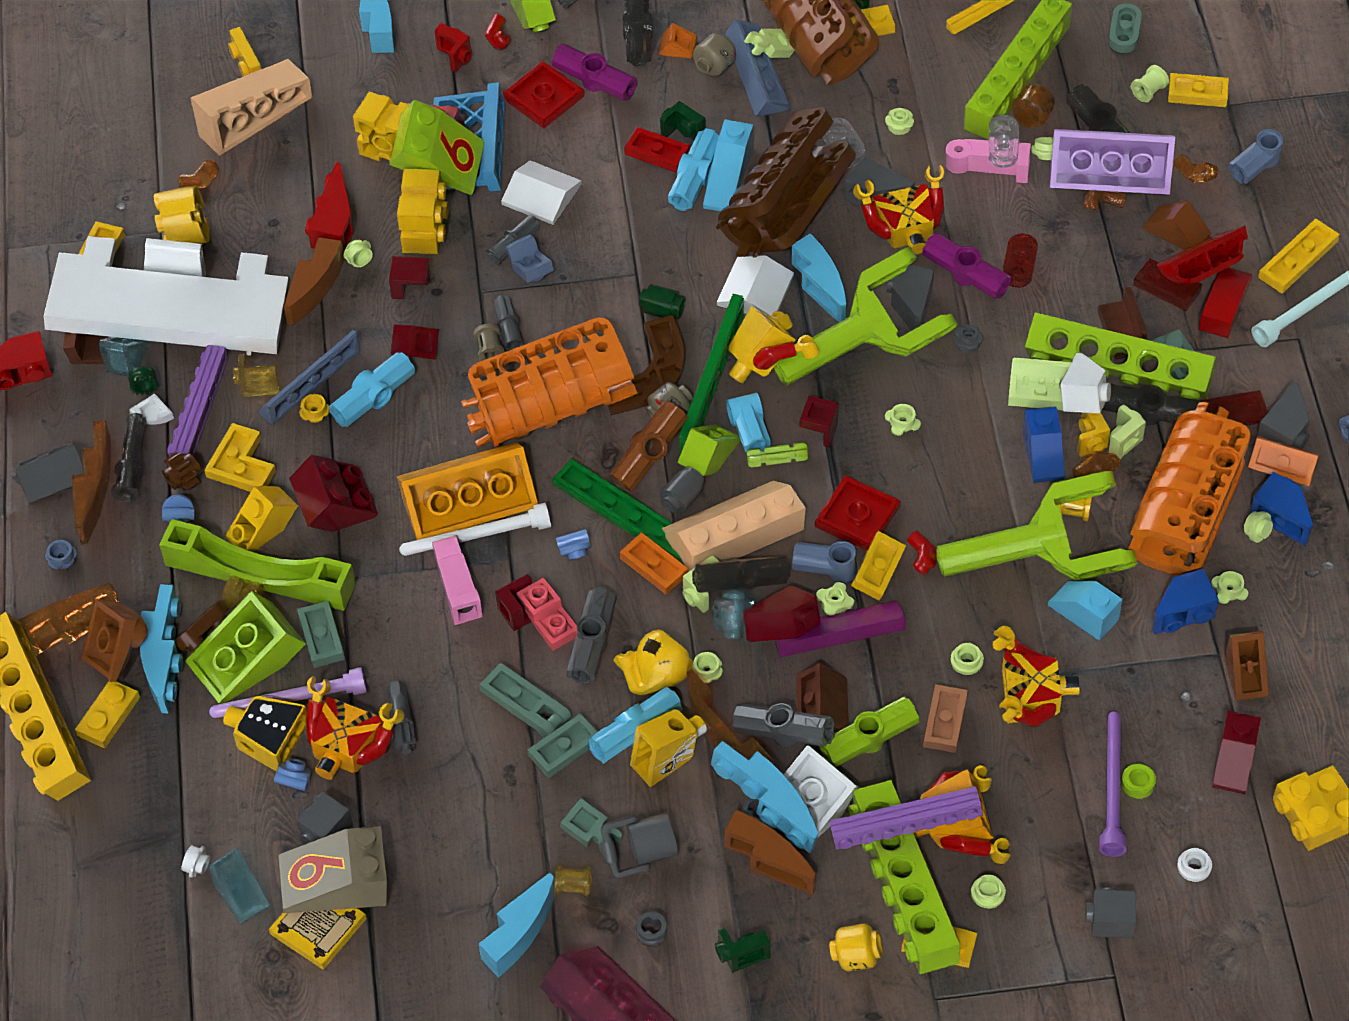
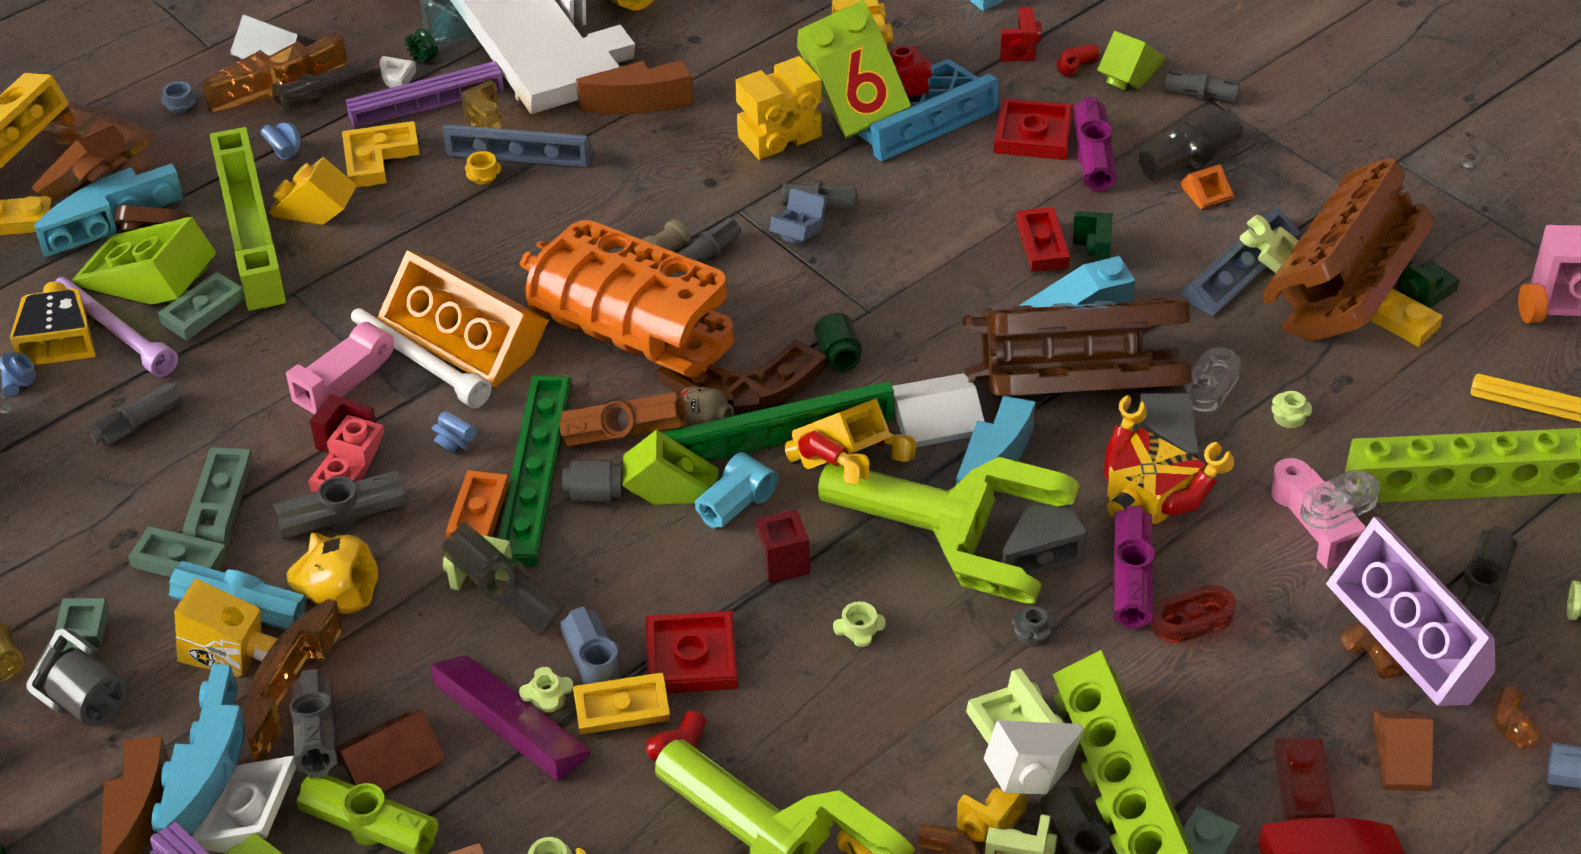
camera: 55 degrees right, 10 degrees down
(181, 471) = (329, 118): reddish brown gear -> none
(236, 590) = (214, 224): clear yellow wheel -> none
(332, 212) = (721, 62): red slope -> none
(332, 494) = (381, 228): dark red slope -> none
(345, 734) = (82, 379): torso -> none
(358, 253) = (701, 103): yellowish green plate -> none
(372, 389) = (536, 192): medium azure piece -> none
(407, 272) = (696, 141): dark red panel -> none
(415, 341) = (621, 191): dark red panel -> none
(540, 191) = (906, 186): white slope -> none
(693, 170) = (1031, 278): medium azure piece -> none
(707, 660) = (366, 623): yellowish green plate -> none
(715, 54) = (1213, 215): dark tan head -> none
(728, 613) = (448, 604): clear light blue head -> none
(738, 525) = (579, 551): light nougat slope -> none
(777, 454) = (715, 539): lime axle -> none
(782, 616) = (471, 645): dark red slope -> none
(1033, 106) = (1432, 508): clear orange head -> none
(1044, 444) = (931, 773): blue slope -> none
(1123, 318) = (1196, 762): copper panel -> none
(1205, 258) = (1367, 790): red brick -> none

